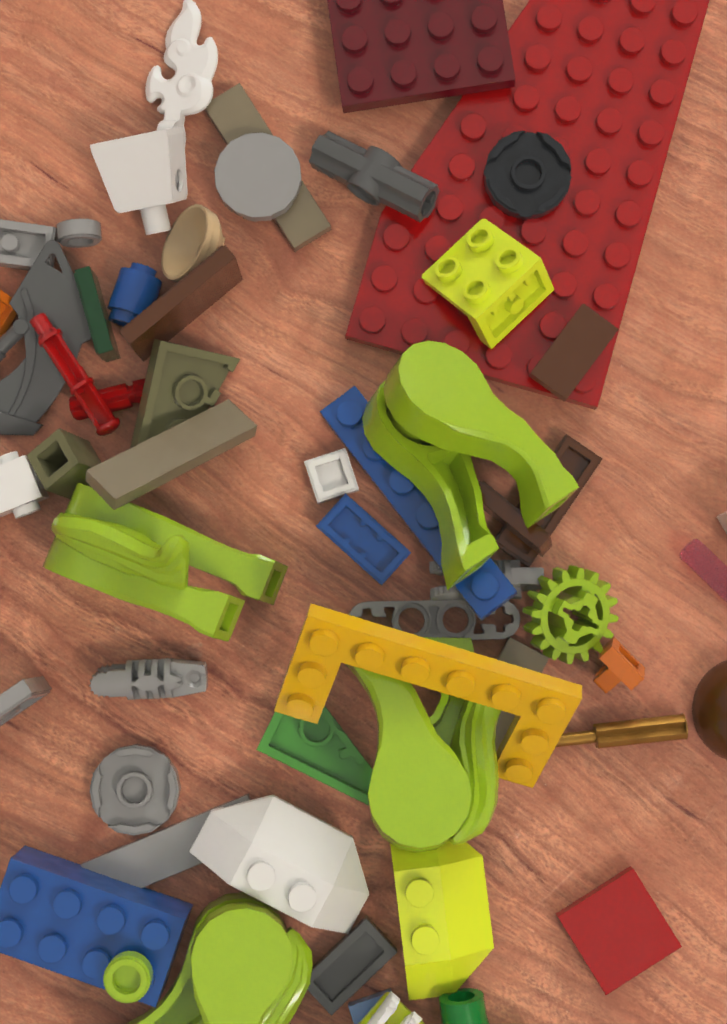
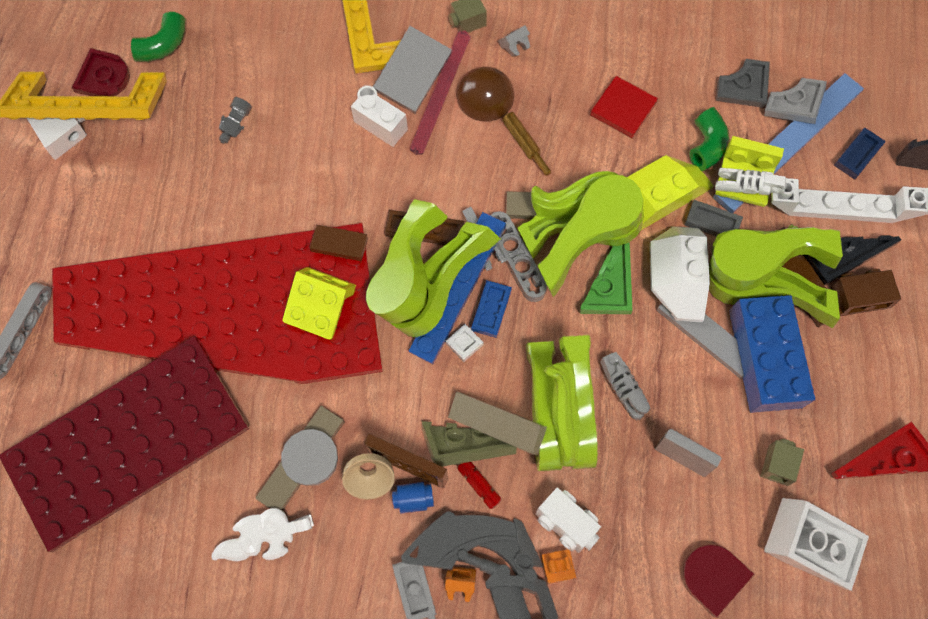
camera: 110 degrees left, 15 degrees down
(63, 462) = (531, 485): olive brick -> none
(74, 375) = (476, 507): red piece -> none
(79, 233) = (389, 549): light grey tile -> none
(96, 314) = (444, 505): dark green tile -> none
(128, 976) = (784, 311): lime tile -> none
(135, 789) = (687, 368): light grey tile -> none
(144, 174) = (336, 523): white torso -> none
(374, 176) = (282, 391): dark grey piece -> none
(512, 519) = (445, 229): reddish brown tile -> none
(527, 175) = (247, 308): black tile -> none
(538, 701) = (538, 176): yellow plate -> none
(554, 629) = (479, 188): lime gear -> none
(617, 667) = (495, 157): orange tile -> none

